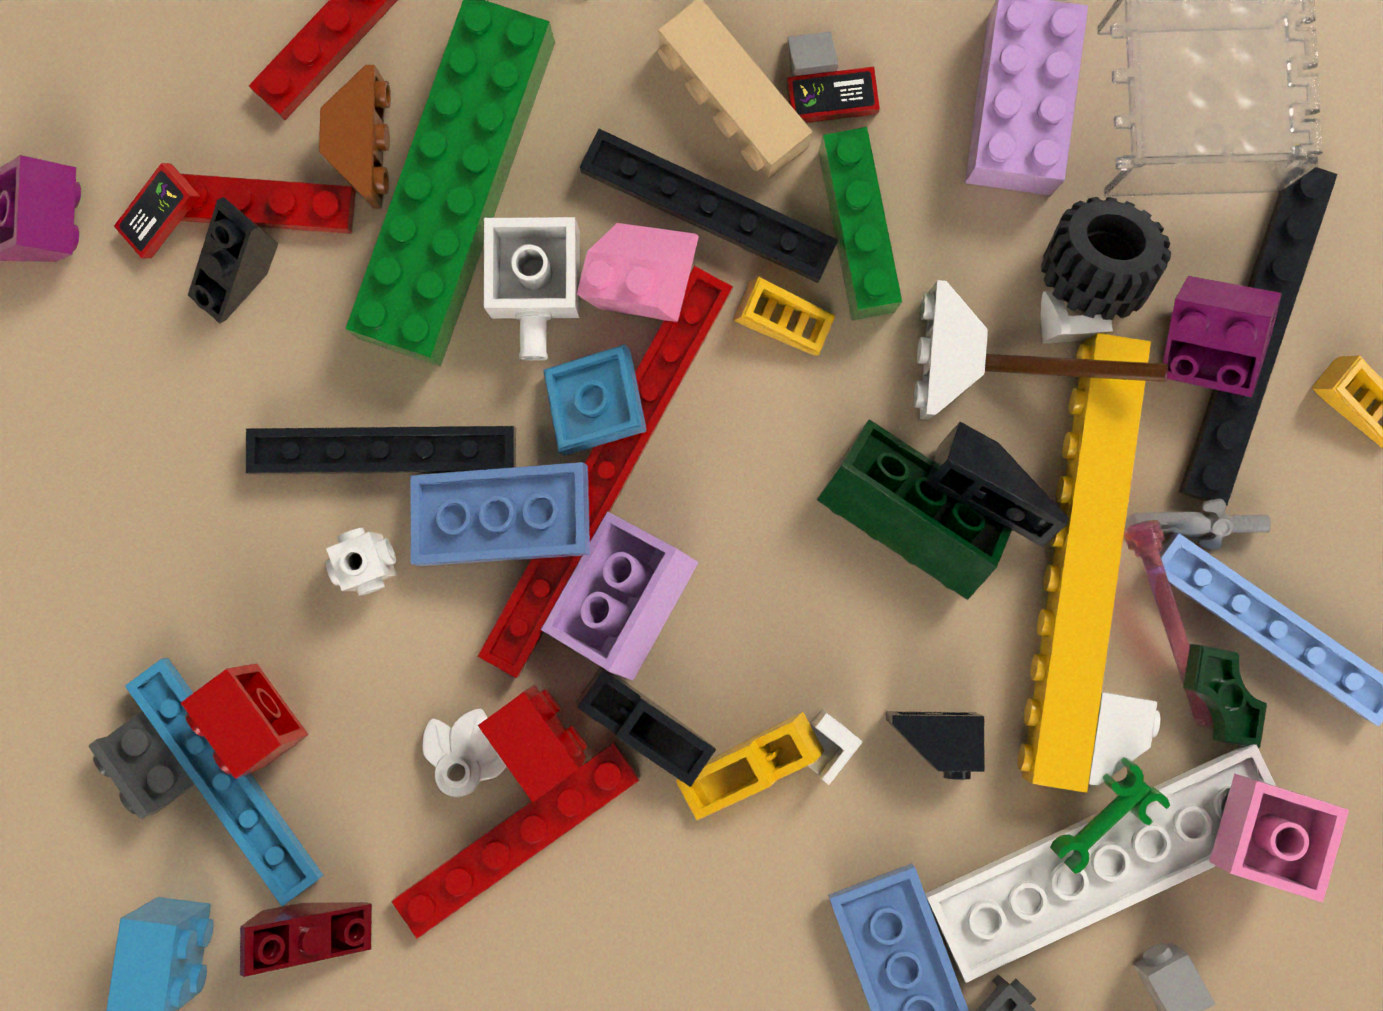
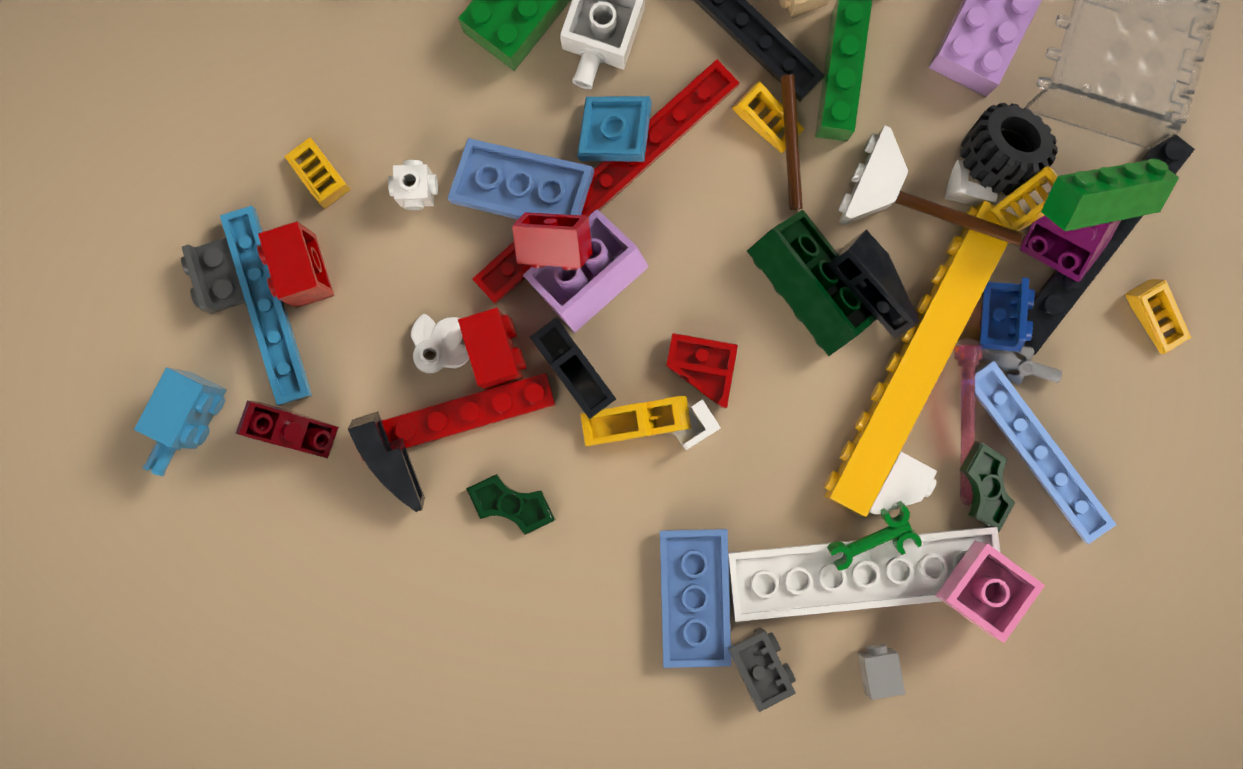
camera: 15 degrees right, 0 degrees up
(260, 604) = (334, 190): none -> yellow slope
(379, 449) = (451, 112): black plate -> none
(448, 931) = (387, 459): none -> black slope
(564, 577) = (552, 240): none -> brick
(608, 927) = (495, 498): none -> dark green tile
(639, 271) = (676, 49): bright pink slope -> none
(812, 664) = (704, 365): none -> red wing
(826, 340) = (791, 142): none -> reddish brown bar
(944, 739) = (778, 448): black slope -> none
(1156, 292) = (1046, 175): none -> yellow slope
(1174, 470) = (1005, 315): none -> blue bracket
(1256, 278) = (1109, 194): none -> green brick

